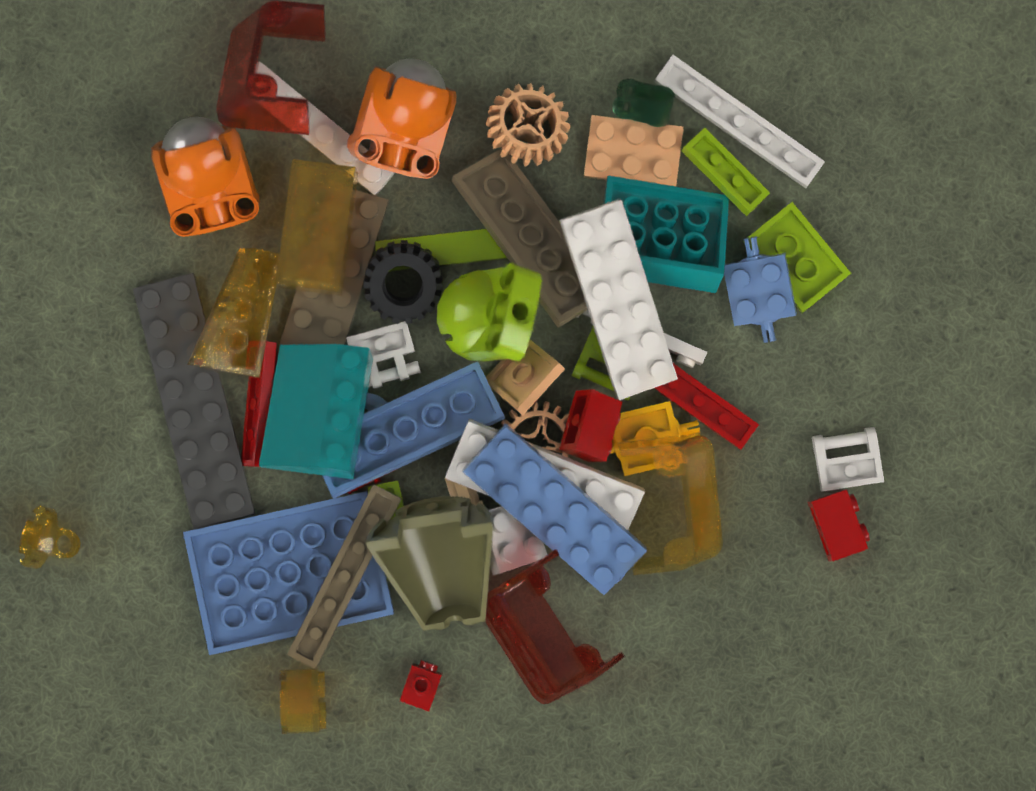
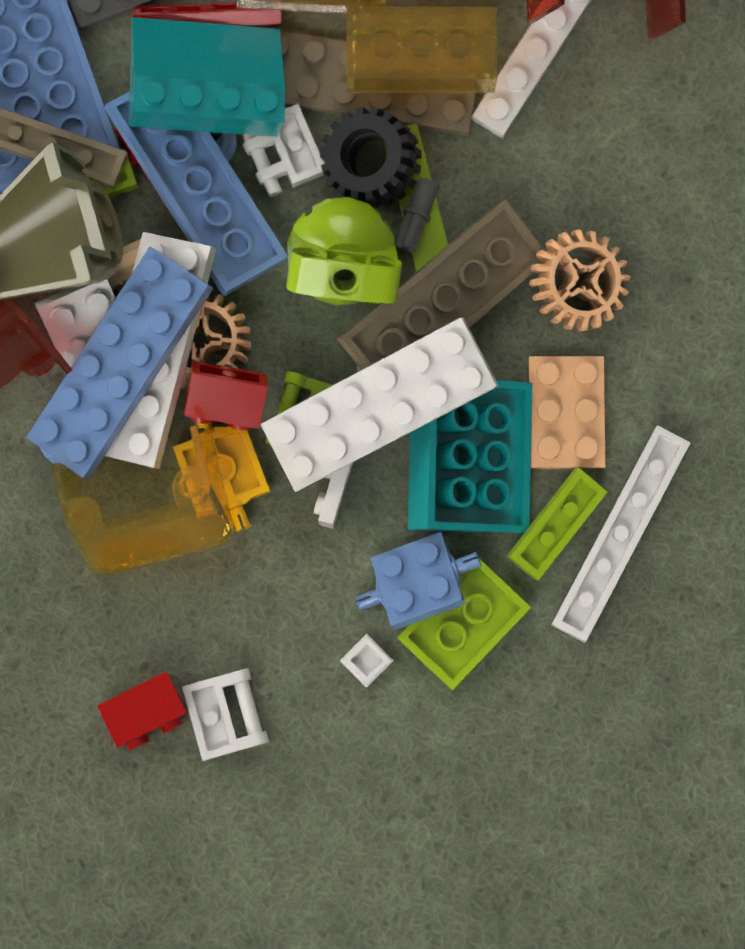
camera: 80 degrees right, 5 degrees down
(404, 118) = (565, 132): orange piece -> none
(455, 251) = (416, 214): none -> dark grey axle
(524, 380) = (277, 312): light nougat plate -> none
(646, 103) = (627, 416): clear green piece -> none
(709, 408) = (268, 537): red plate -> none
(816, 340) = (366, 660): none -> white tile

